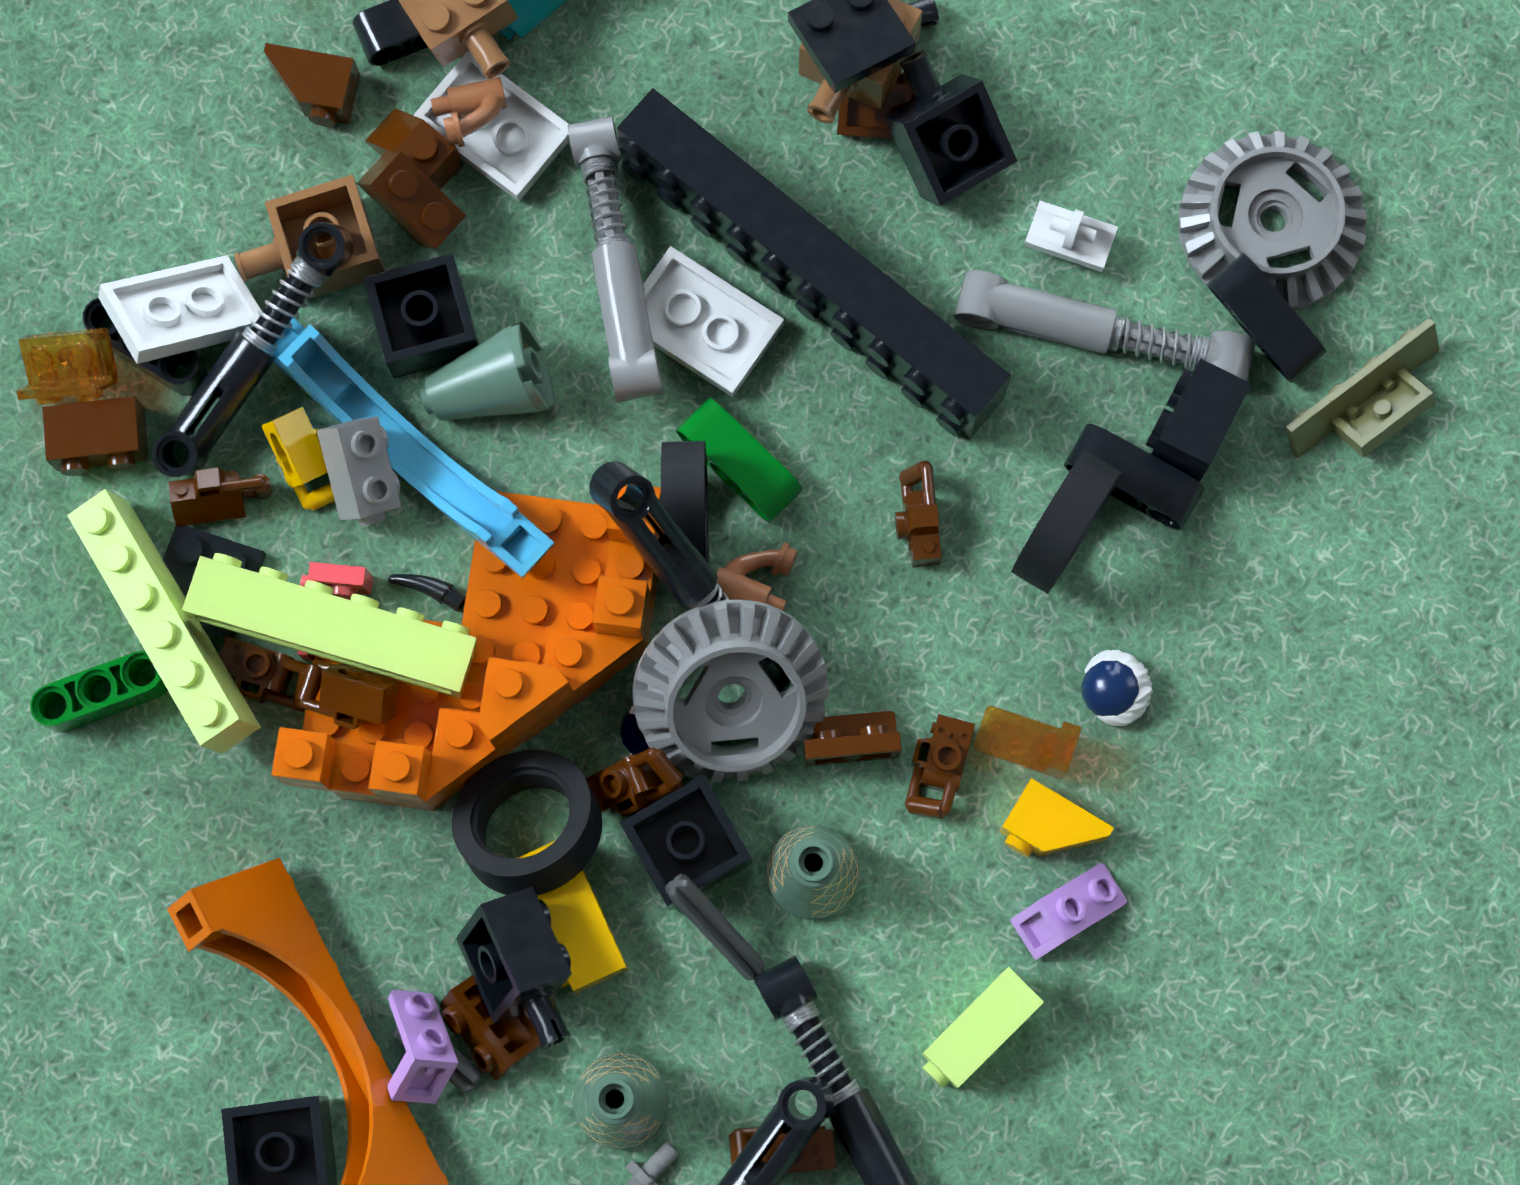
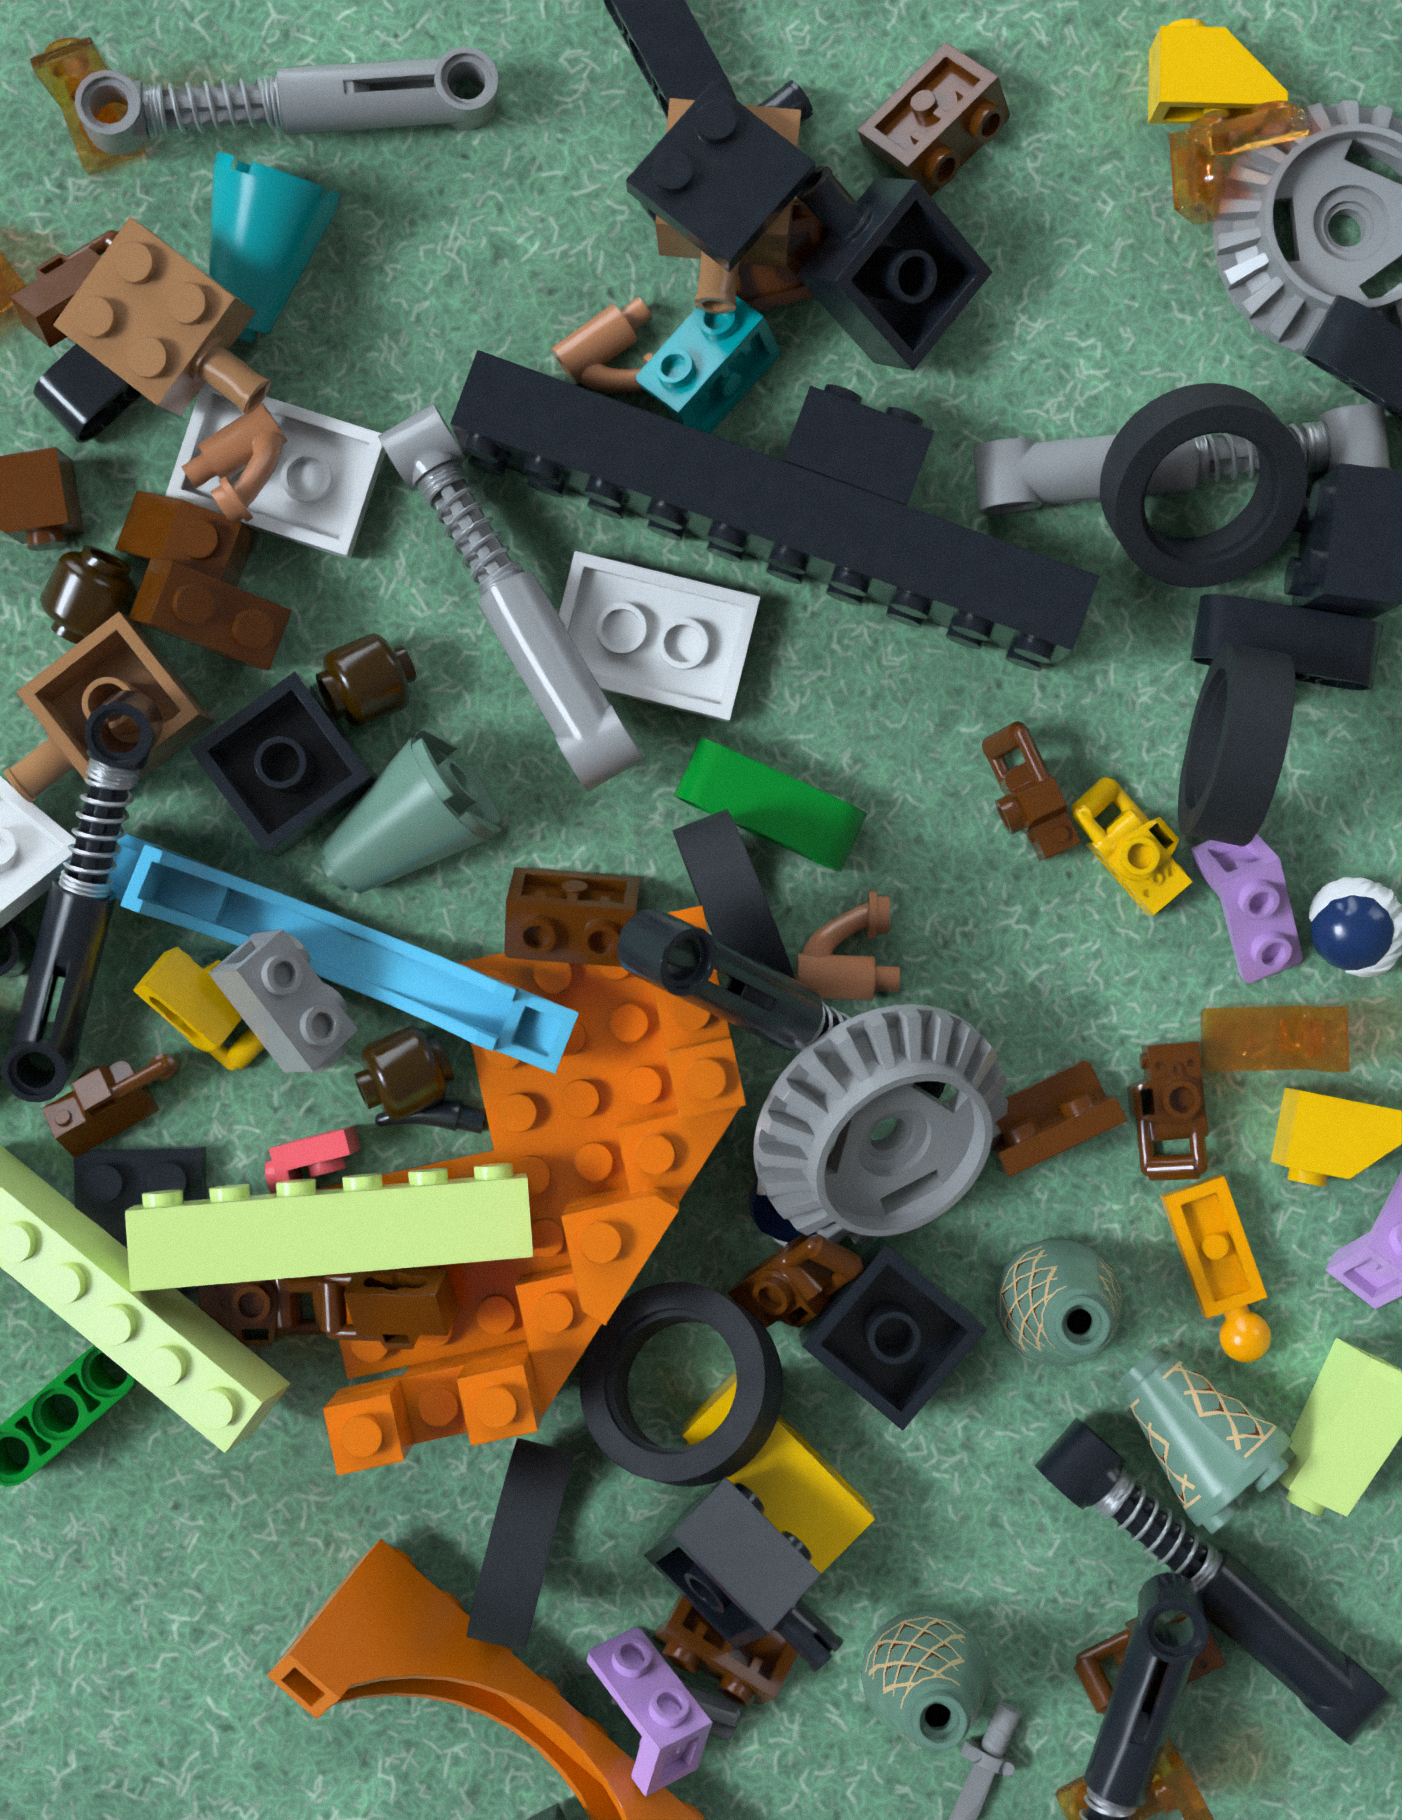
camera: 25 degrees left, 10 degrees up
(335, 157) = (87, 592): none -> dark brown head
(374, 885) = (519, 1544): none -> black tyre
(420, 549) = (404, 1073): none -> dark brown head
(497, 280) = (366, 680): none -> dark brown head
(562, 484) = (568, 915): none -> reddish brown bracket
(715, 927) = (969, 1429): dark grey axle -> none
(744, 117) = (600, 341): none -> nougat plant
(808, 157) = (710, 365): none -> teal bracket
(878, 999) = (1204, 1438): none -> sand green cone
(885, 238) = (859, 443): none -> black brick
(935, 886) = (1219, 1263): none -> light orange plate
(976, 577) = (1130, 848): none -> yellow piece
(1020, 55) = (937, 118): none -> reddish brown bracket
(1046, 646) = (1253, 905): none -> lavender bracket
(1071, 236) = (1095, 348): white hips -> none
(1107, 401) = (1246, 539): none -> black tyre
(1185, 134) = (1200, 177): none -> clear orange bracket
(1212, 91) = (1204, 74): none -> yellow slope

